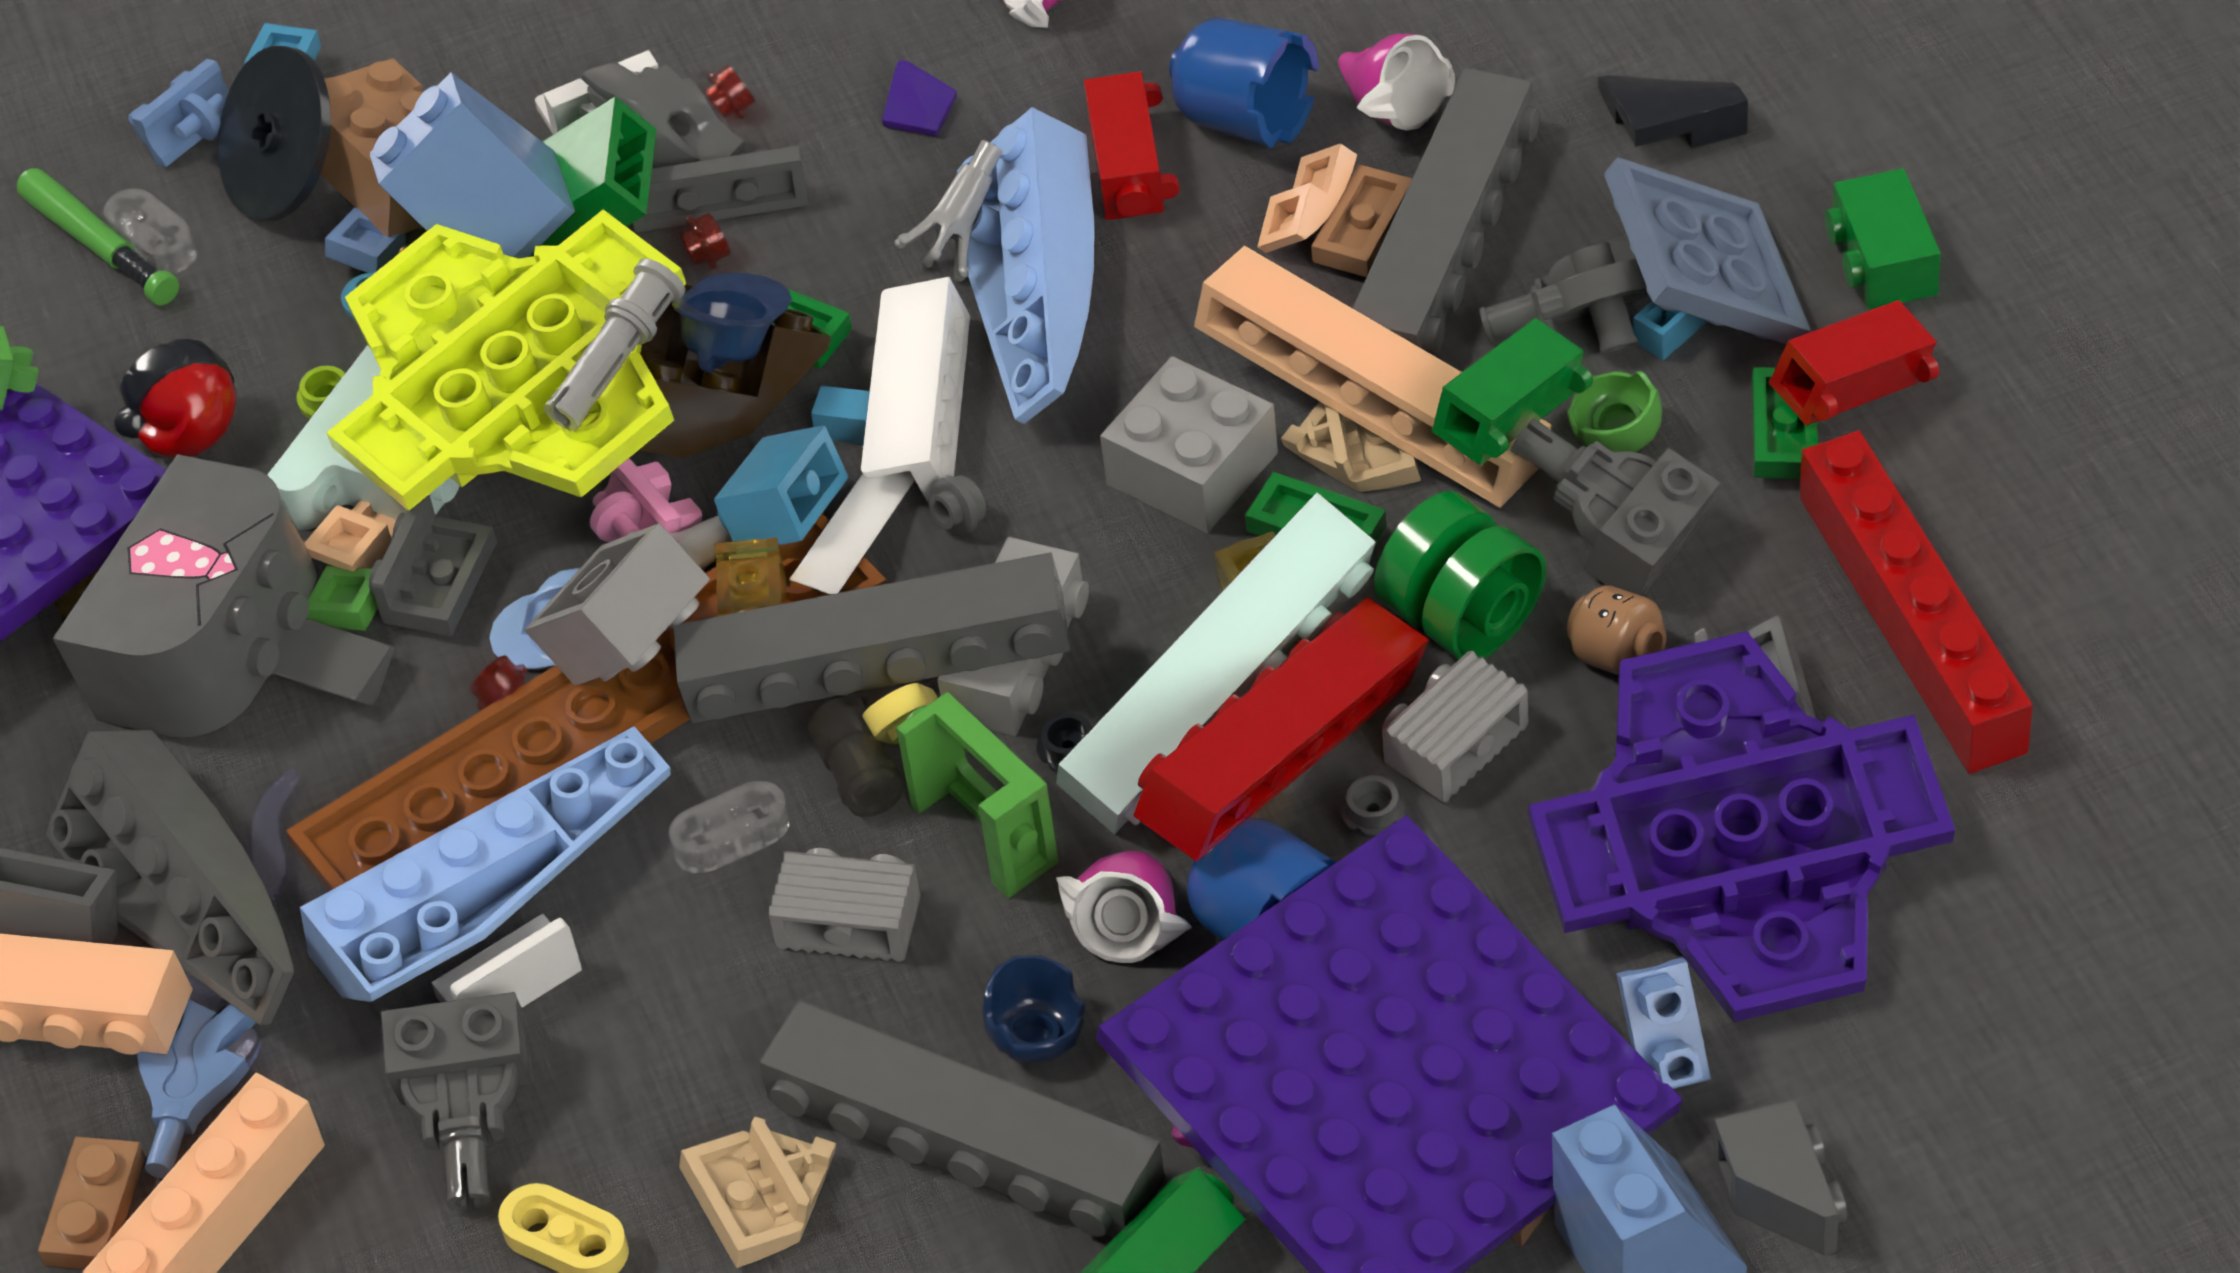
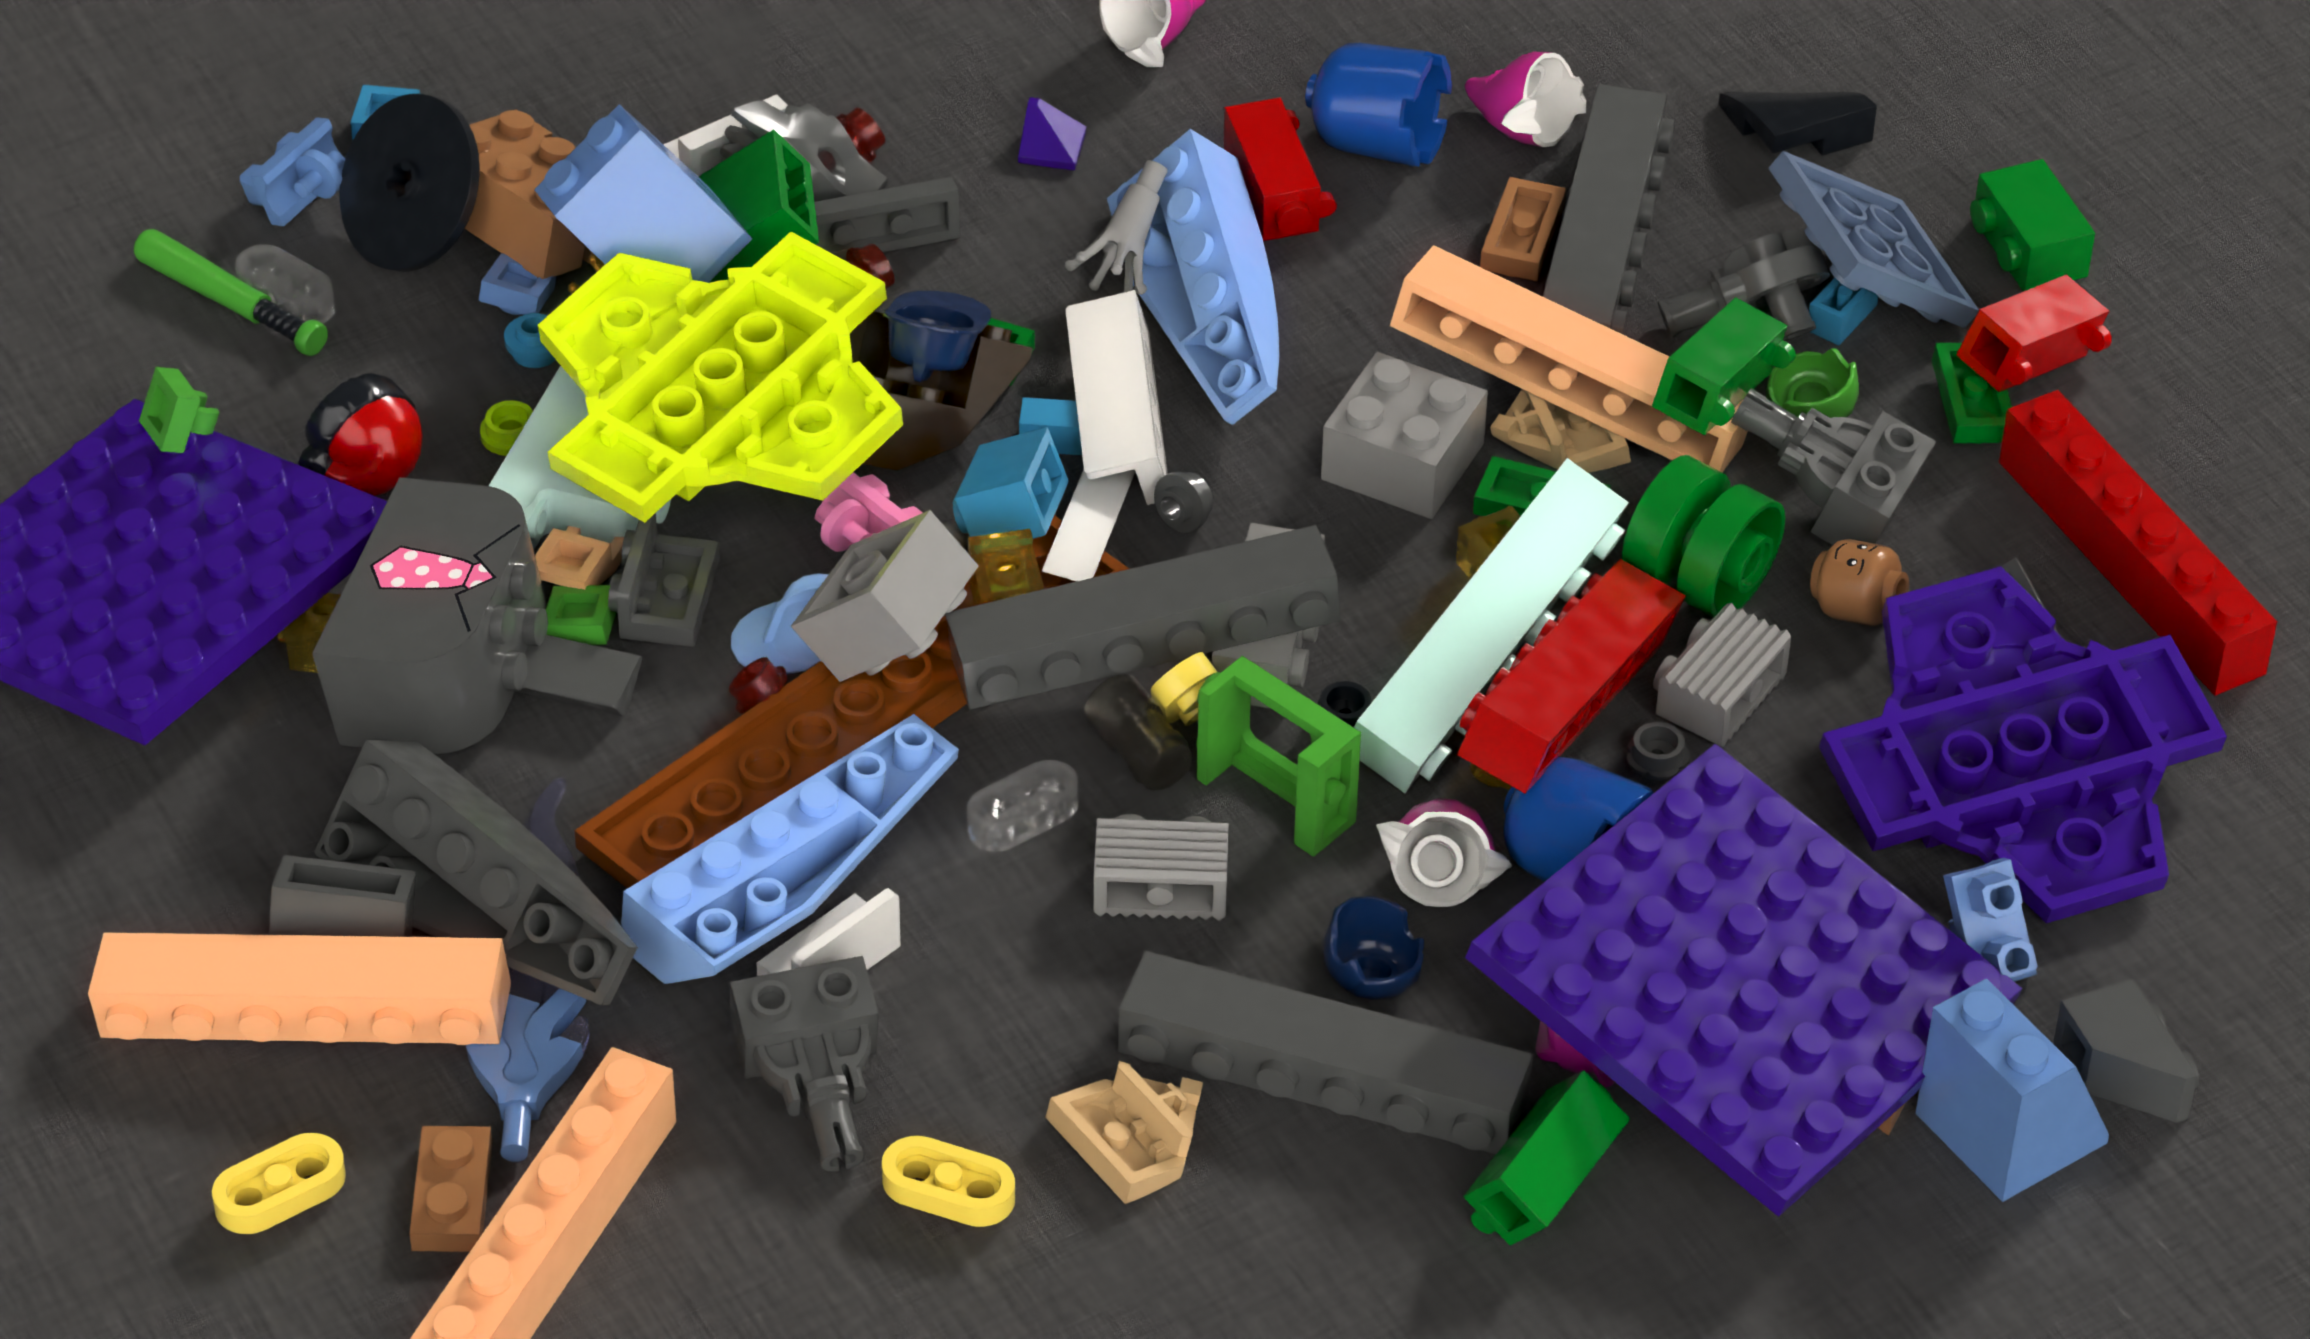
camera: 15 degrees left, 5 degrees down
(627, 324) = (848, 332): light grey pin -> none
(1315, 194) = (1469, 208): light nougat slope -> none

